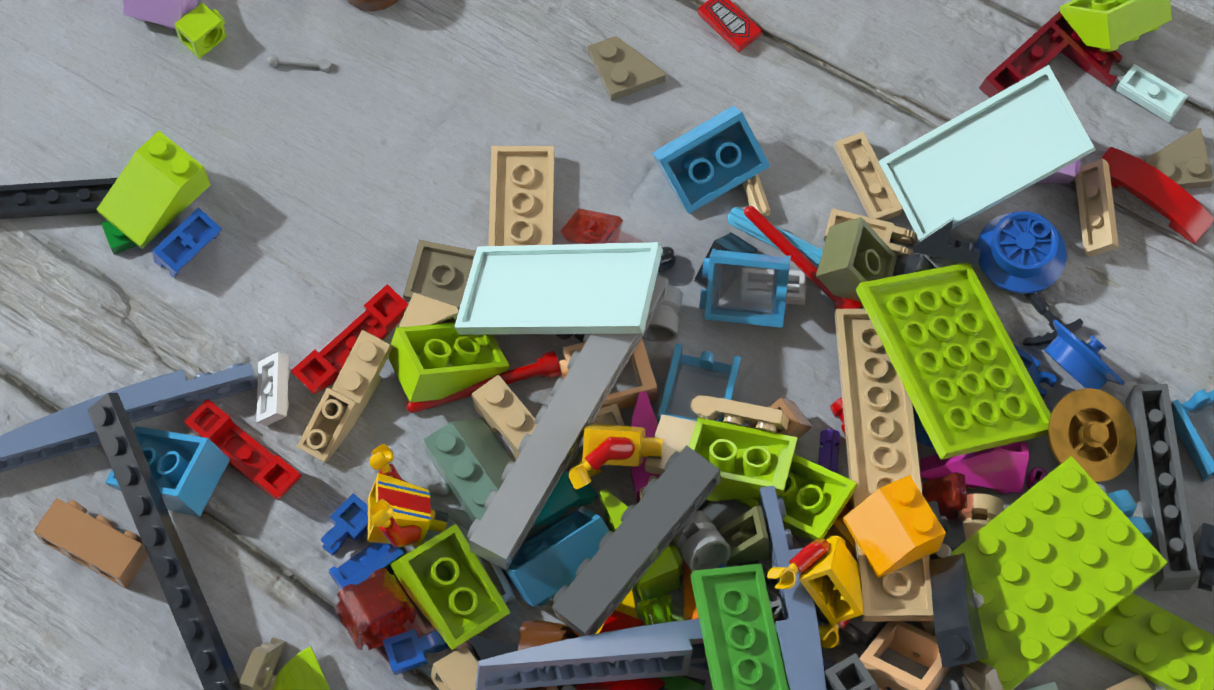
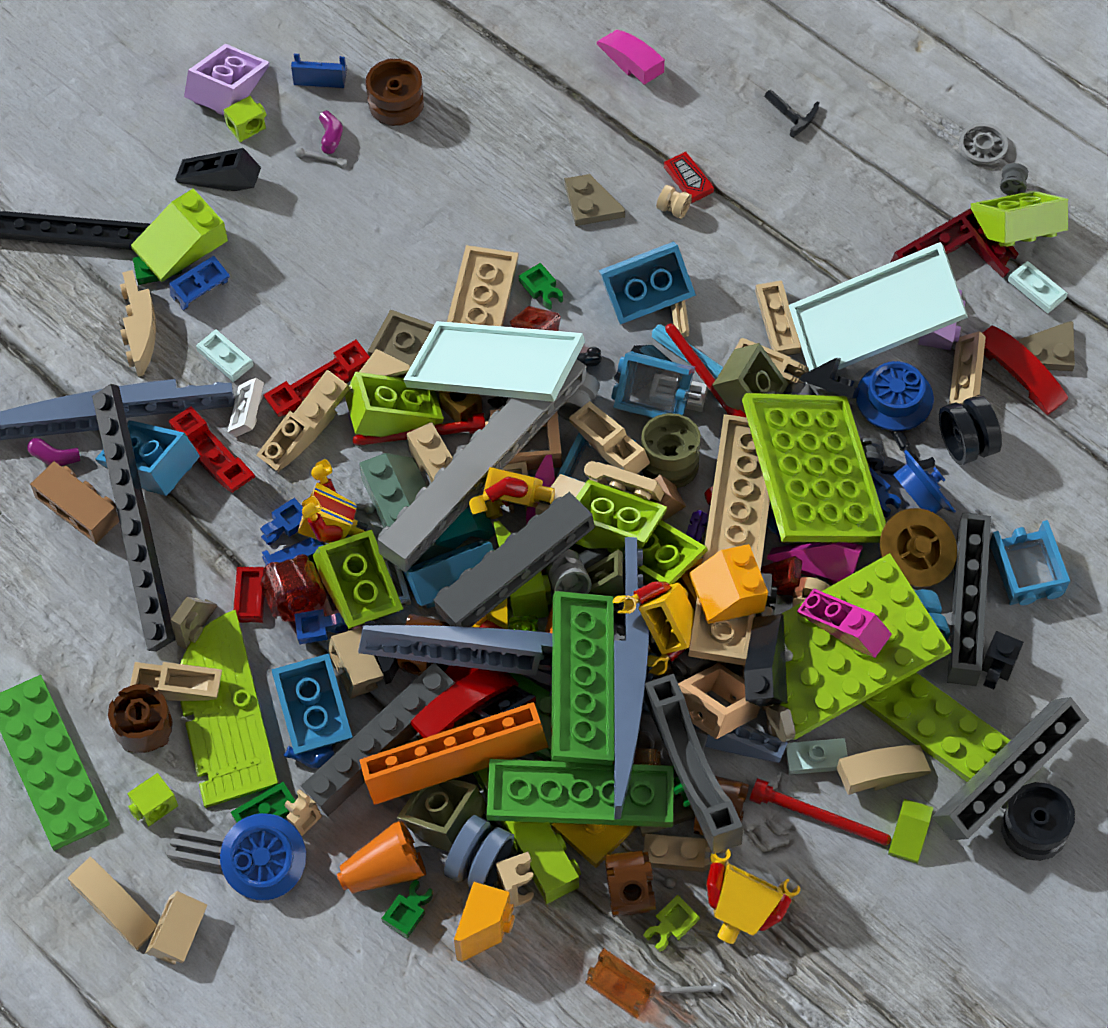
camera: 10 degrees right, 5 degrees down
(51, 488) = (48, 454): none -> magenta arm
(126, 306) = (139, 325): none -> tan slope
(184, 99) = (222, 170): none -> black slope
(234, 327) = (224, 355): none -> light aqua plate
(308, 31) = (333, 132): none -> magenta arm
(322, 622) = (249, 595): none -> red tile
(525, 352) = (460, 410): none -> pearl gold brick
(587, 178) = (541, 283): none -> green plate
(711, 363) = (609, 439): none -> tan slope
(719, 54) = (674, 201): none -> tan wheel
(782, 361) = (672, 448): none -> olive wheel
(1012, 321) = (872, 450): none -> dark grey wheel
(1039, 551) = (846, 622): none -> dark pink slope
(1119, 280) = (970, 429): none -> black wheel

